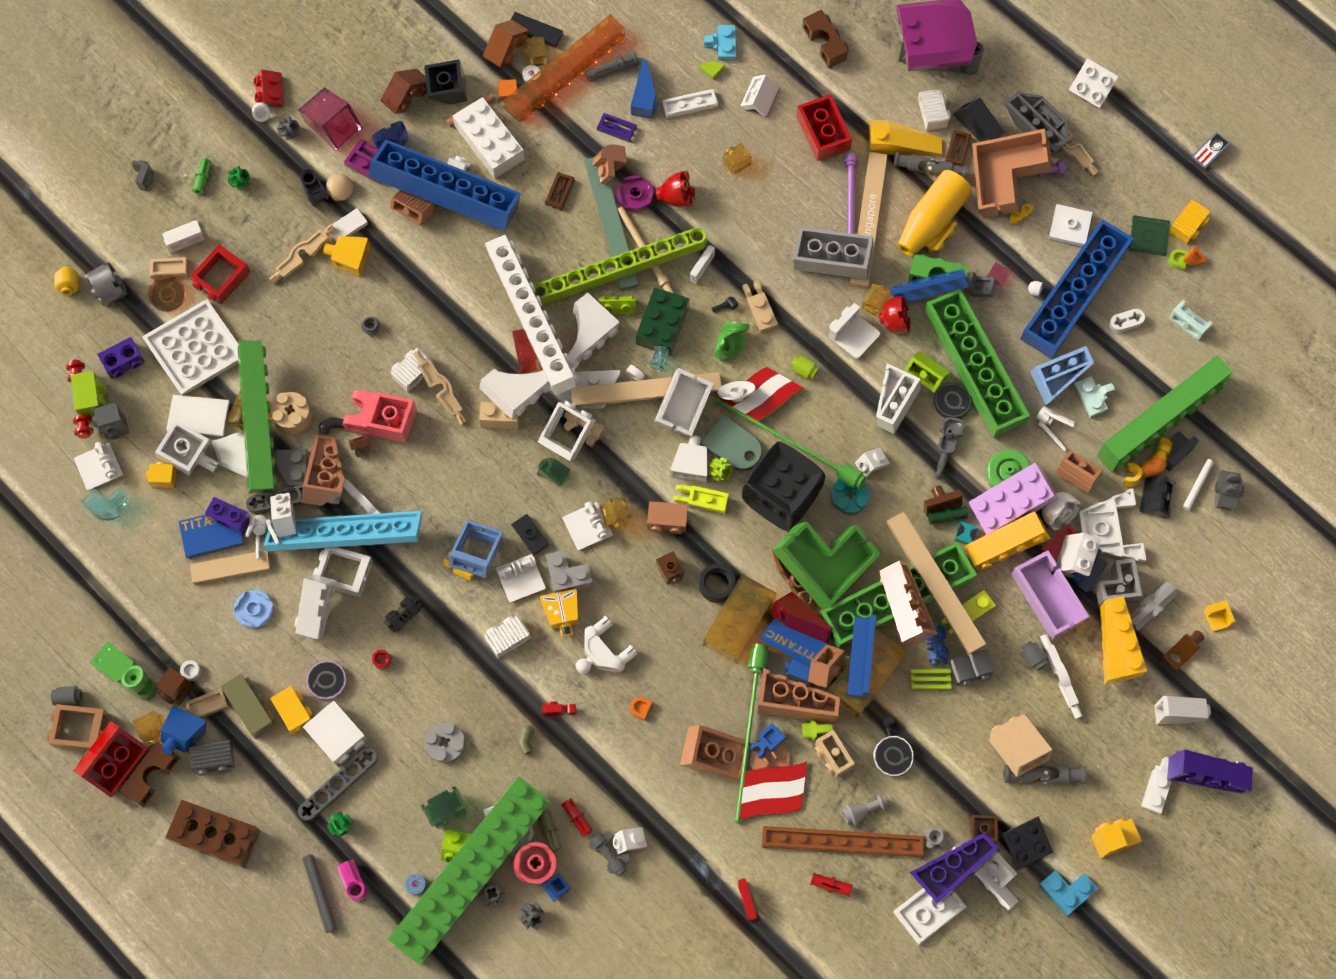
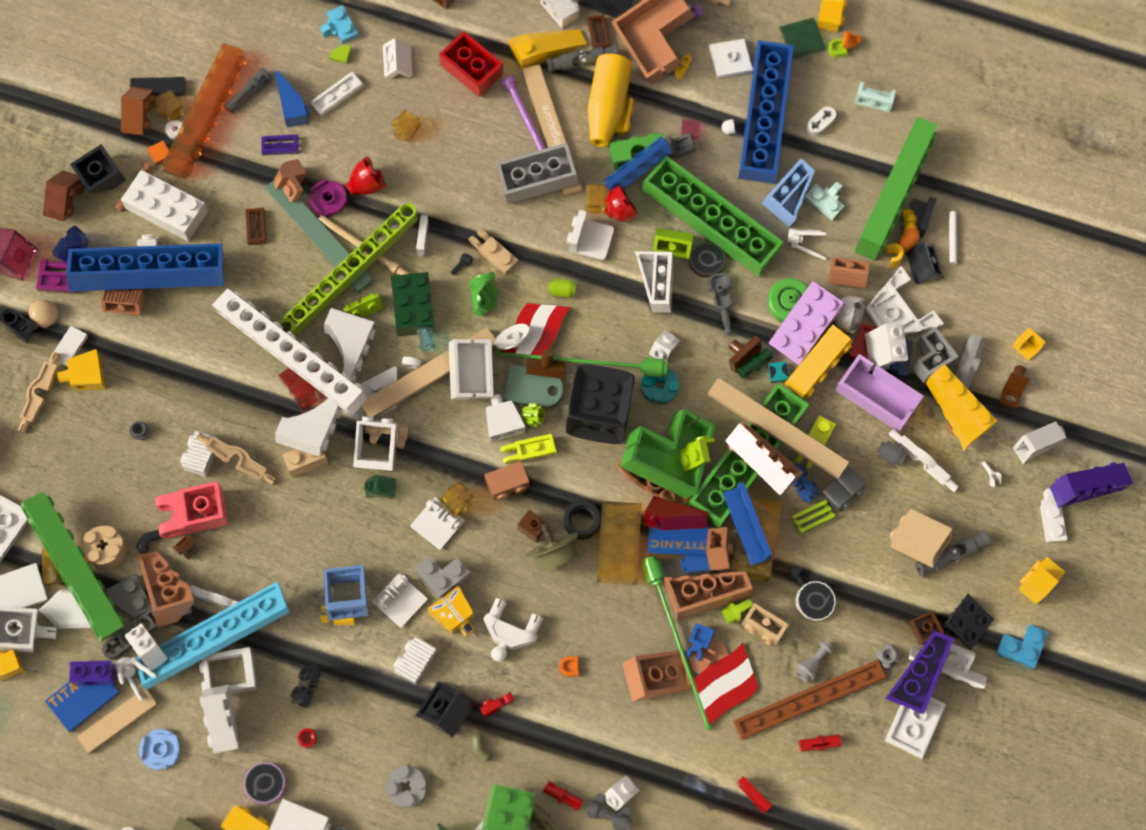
camera: 30 degrees left, 0 degrees up
(512, 692) = (445, 709): none -> black slope
(530, 534) = (388, 556): black plate -> none
(676, 599) = (555, 551): none -> olive piece
(753, 430) = (545, 366): none -> reddish brown tile
(847, 570) = (696, 453): none -> lime bracket
(1120, 722) = (994, 476): none -> white hand
(1228, 490) = (982, 230): dark grey hinge -> none

